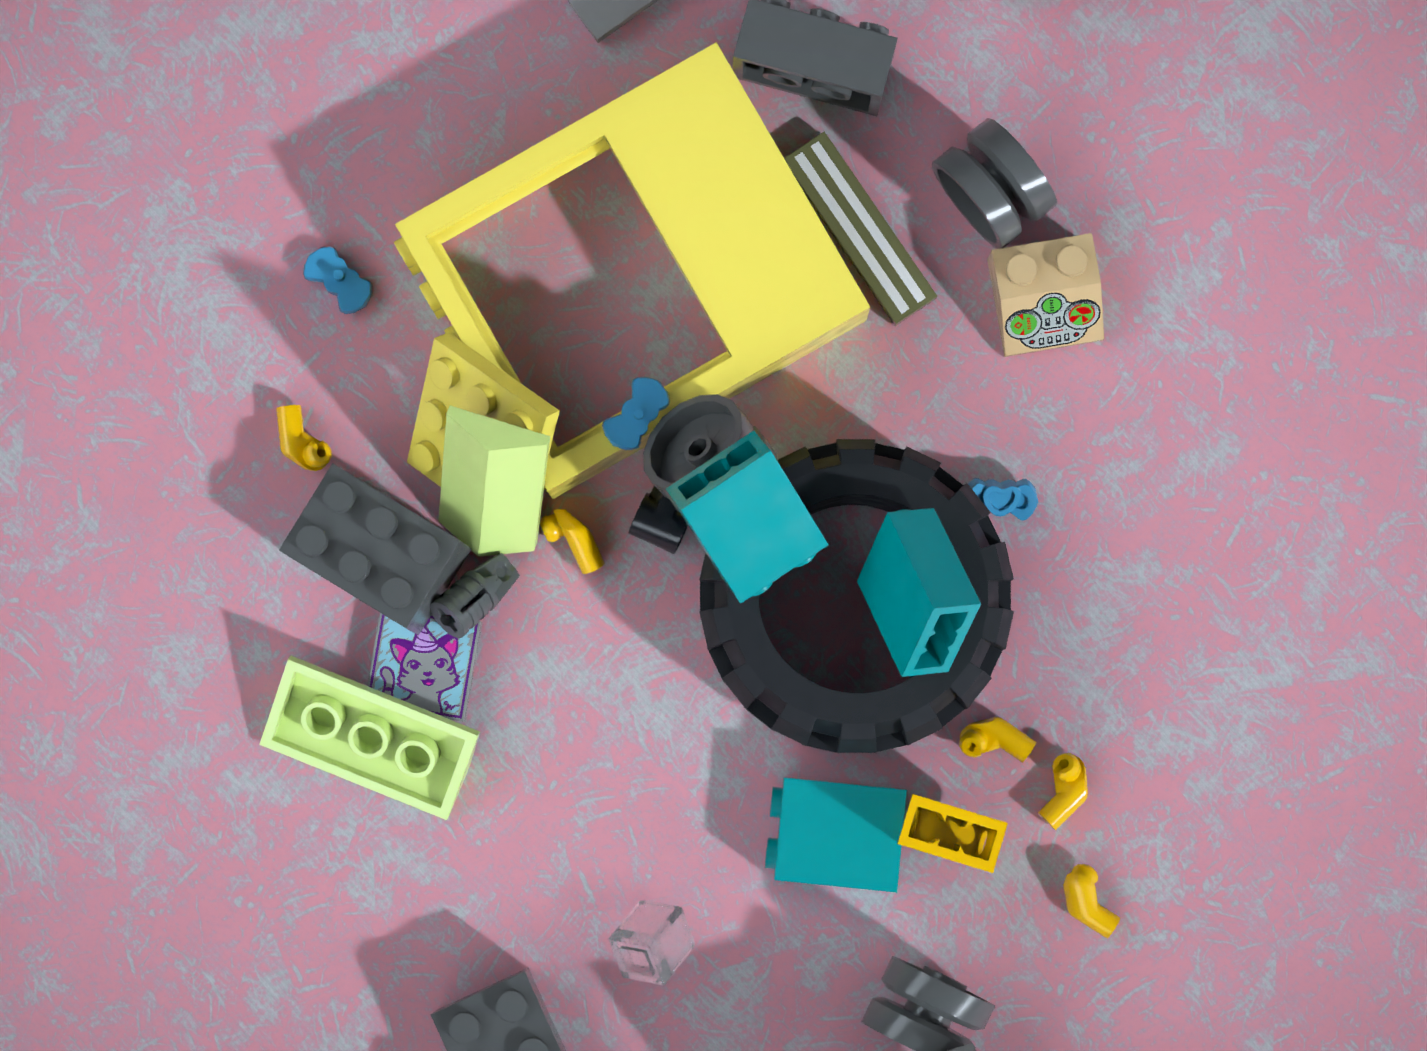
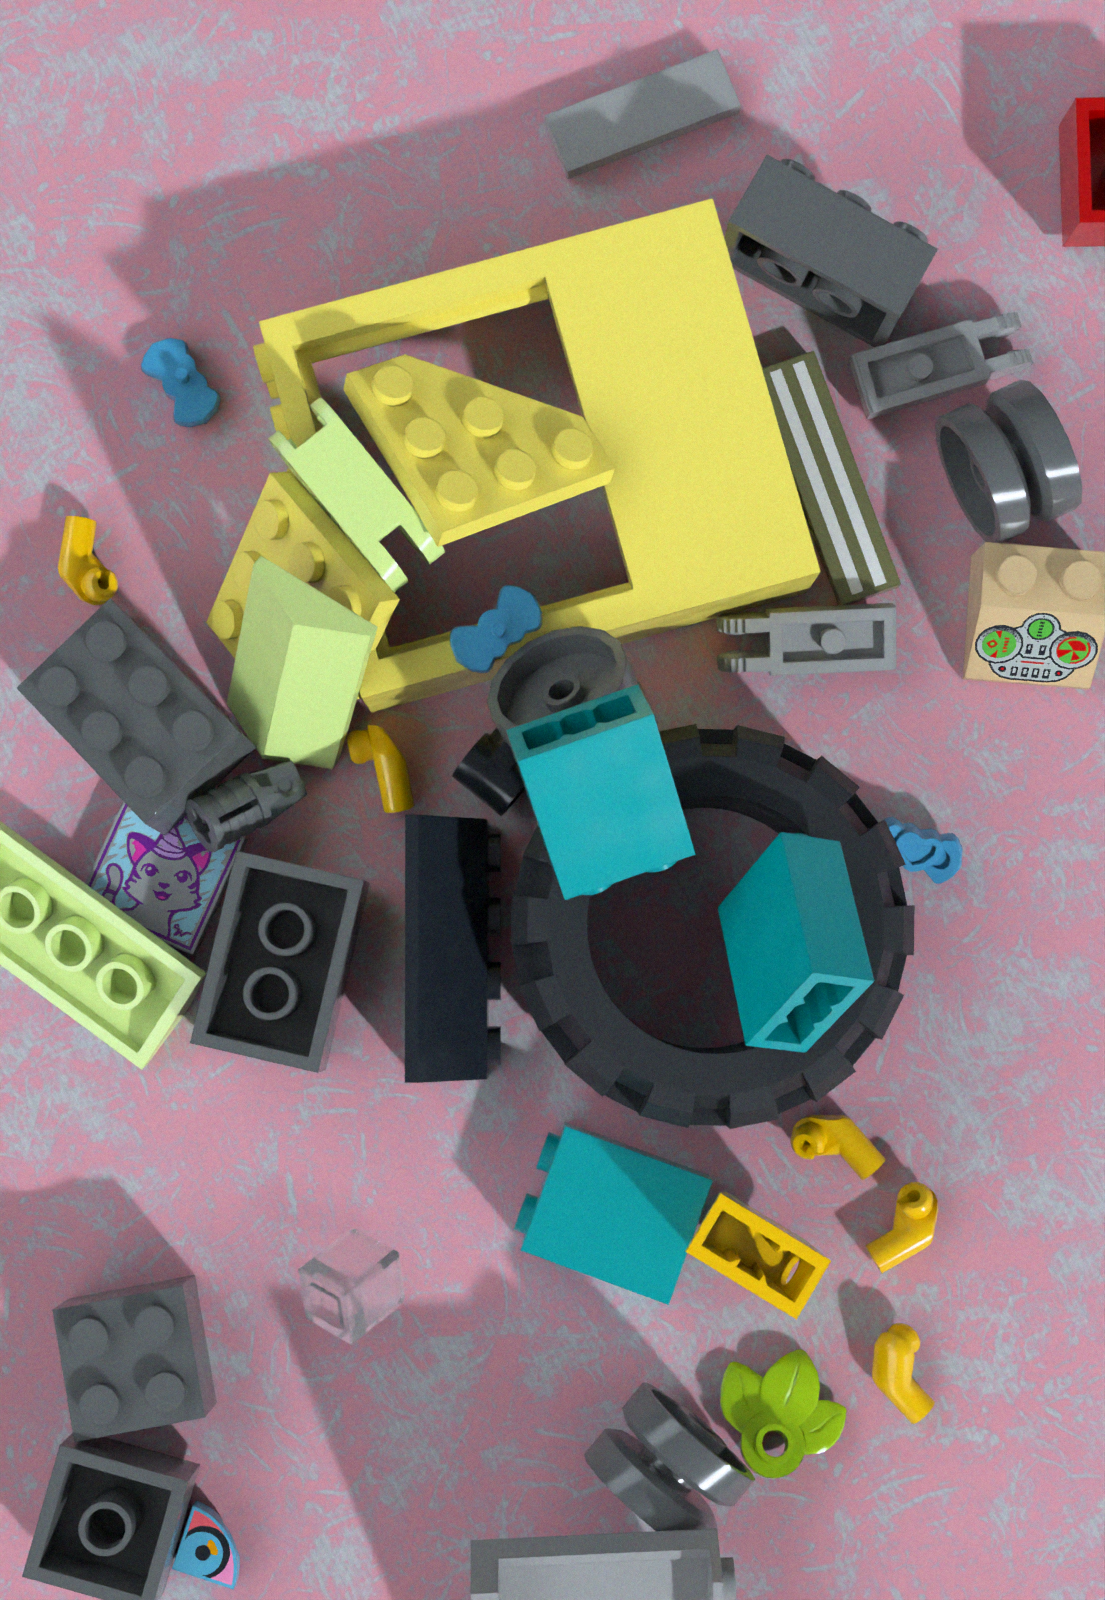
camera: 10 degrees right, 0 degrees up
(505, 338) = (355, 493): none -> yellowish green piece
(534, 707) = (280, 962): none -> dark grey brick
(583, 281) = (472, 448): none -> light yellow plate
(660, 664) = (449, 948): none -> black slope
(880, 356) = (814, 639): none -> light grey hinge
(920, 118) = (934, 364): none -> light grey hinge
(1004, 948) = (780, 1403): none -> lime plate

